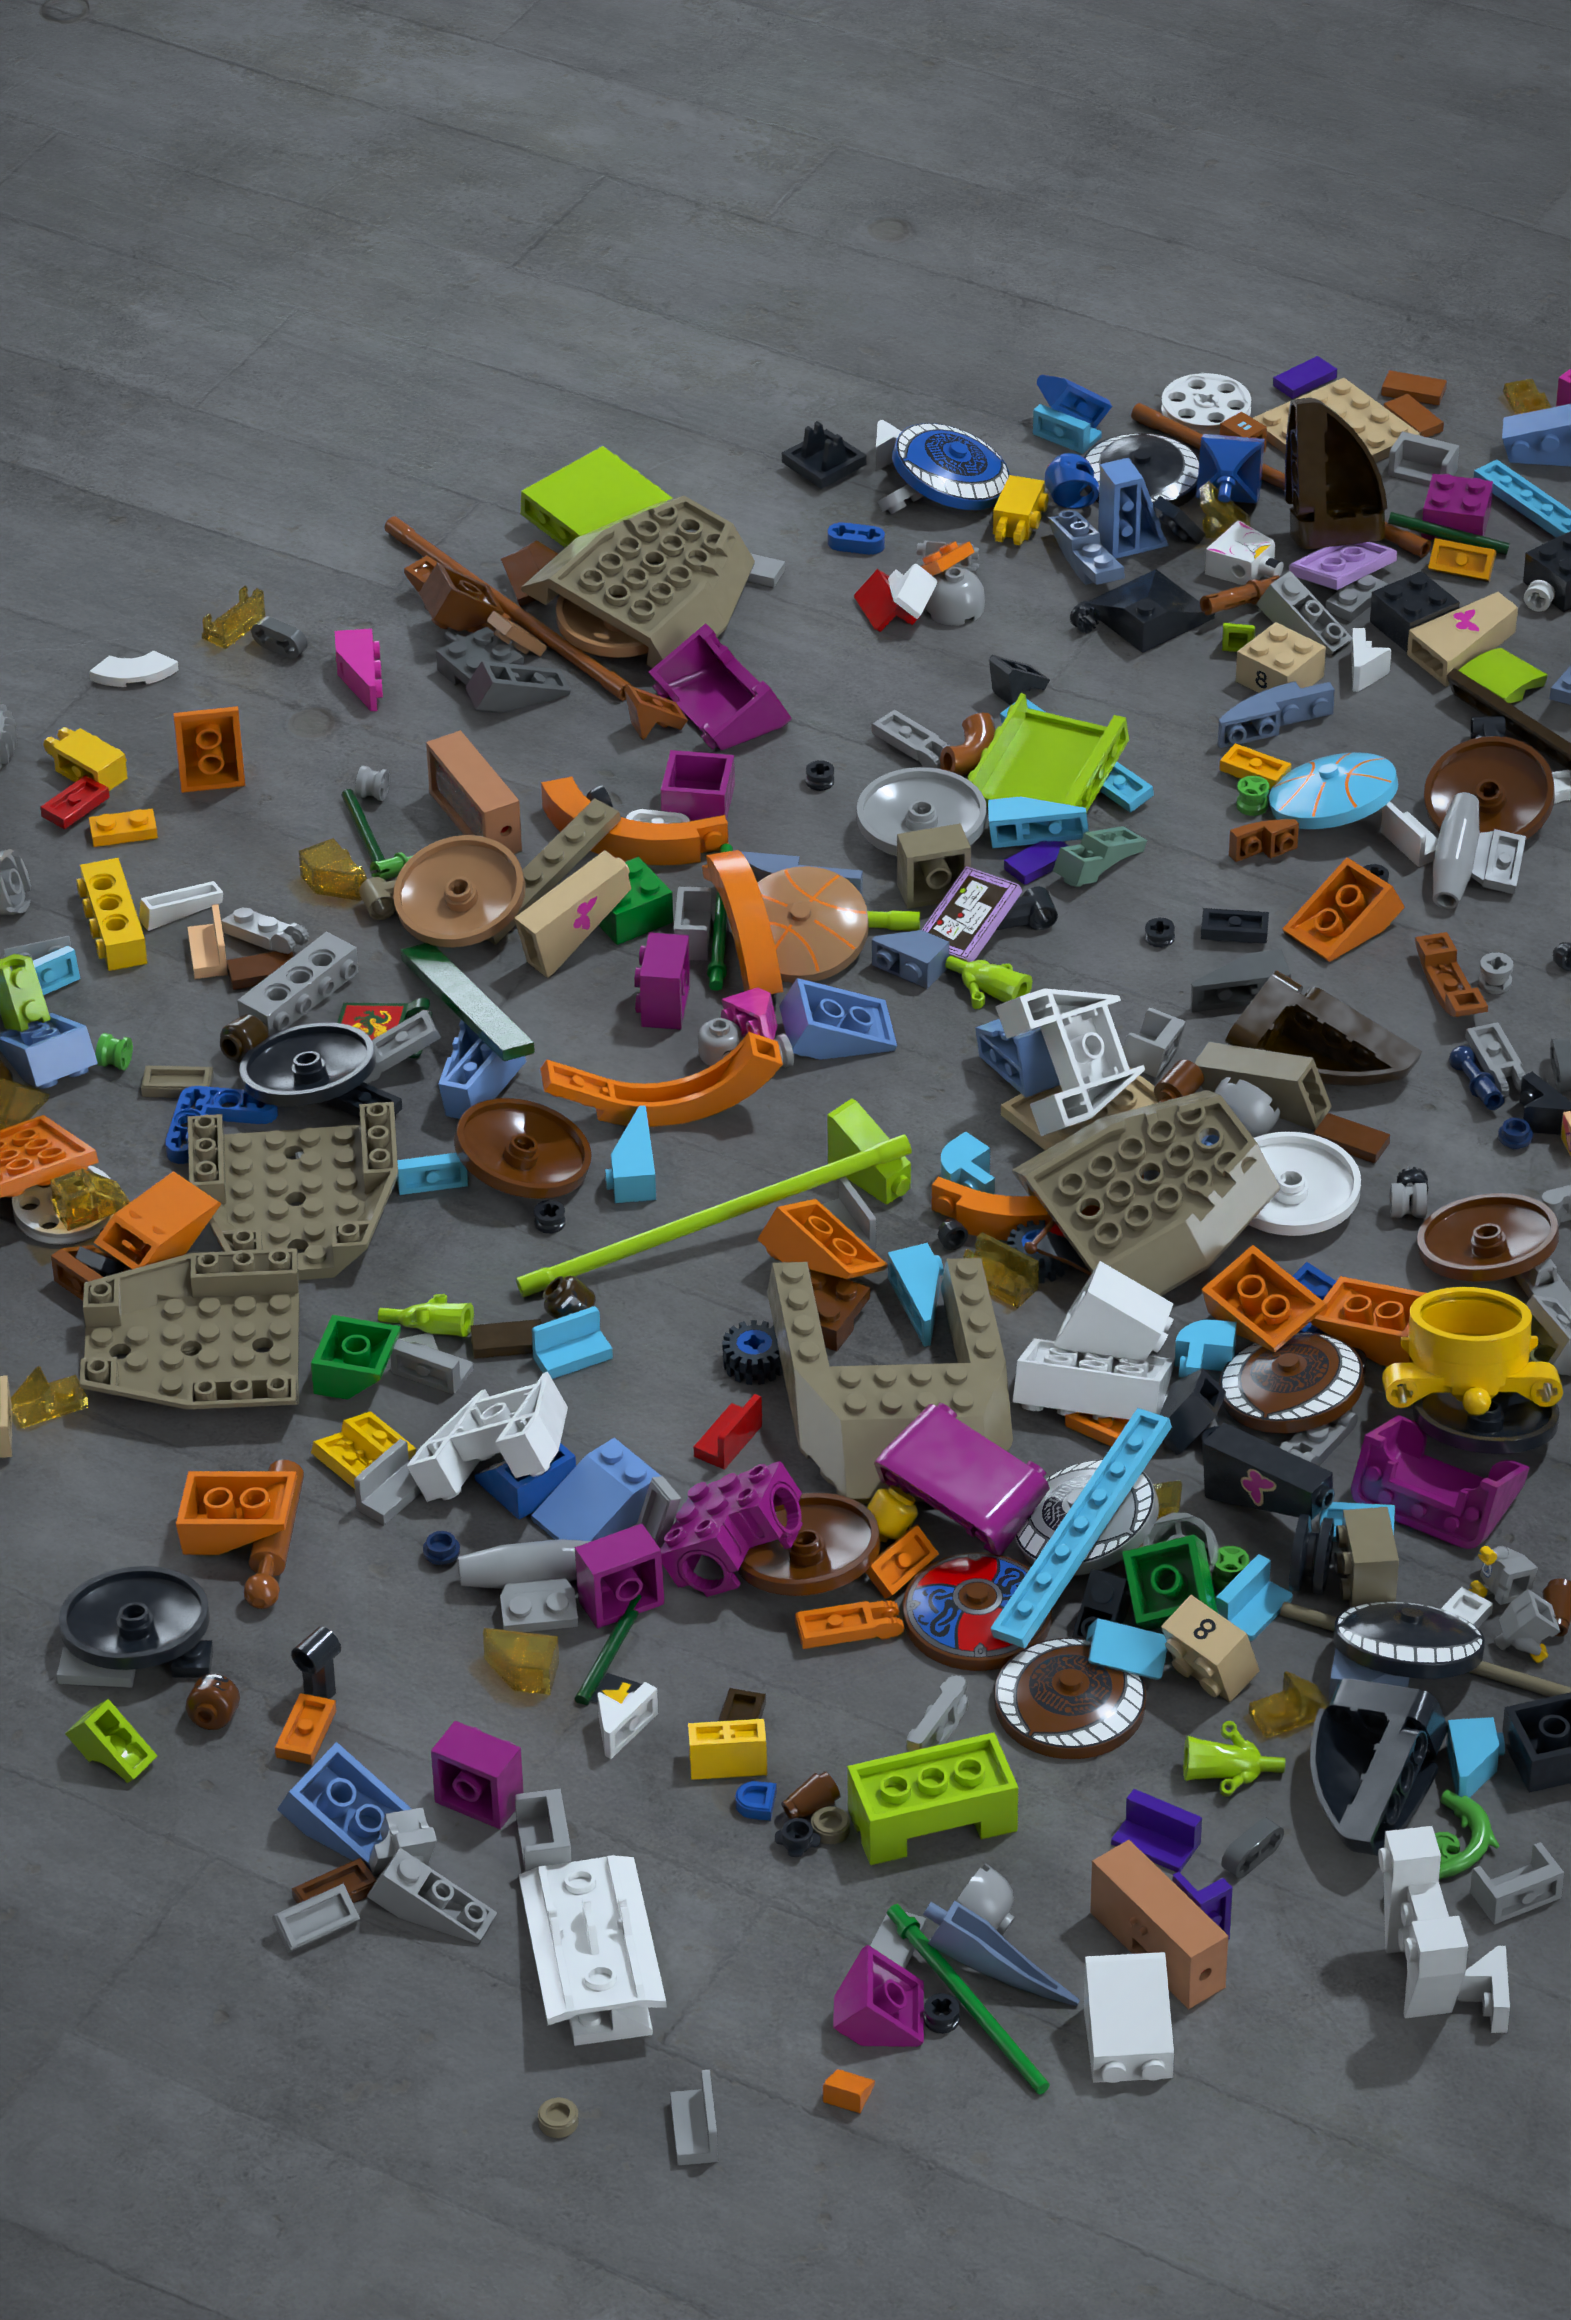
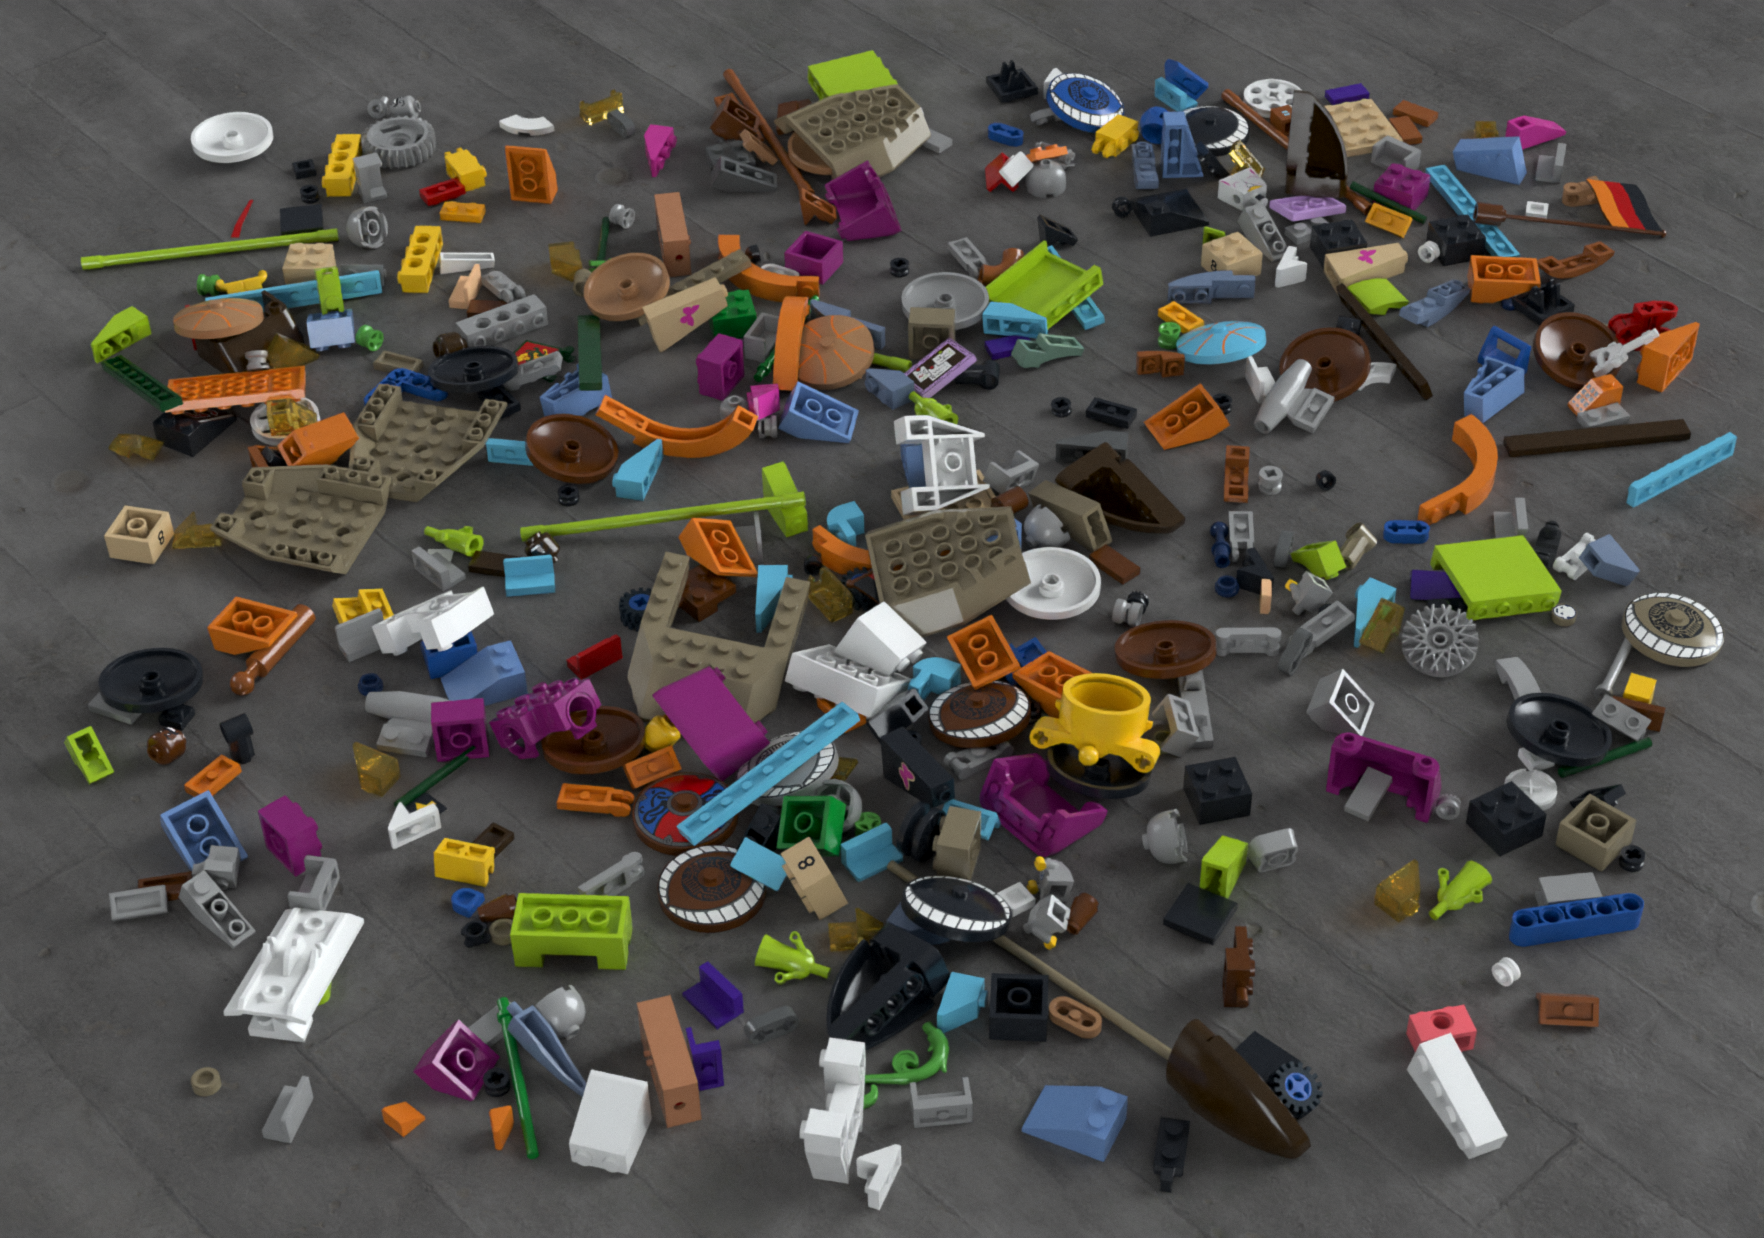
camera: 20 degrees right, 0 degrees up
(351, 1356) = (383, 549): green slope -> none
(659, 1509) = (509, 690): light grey tile -> none
(982, 2063) = (502, 1124): none -> orange slope
(1231, 466) = (1262, 135): blue piece -> none
(1236, 596) = (1220, 213): dark orange pin -> none

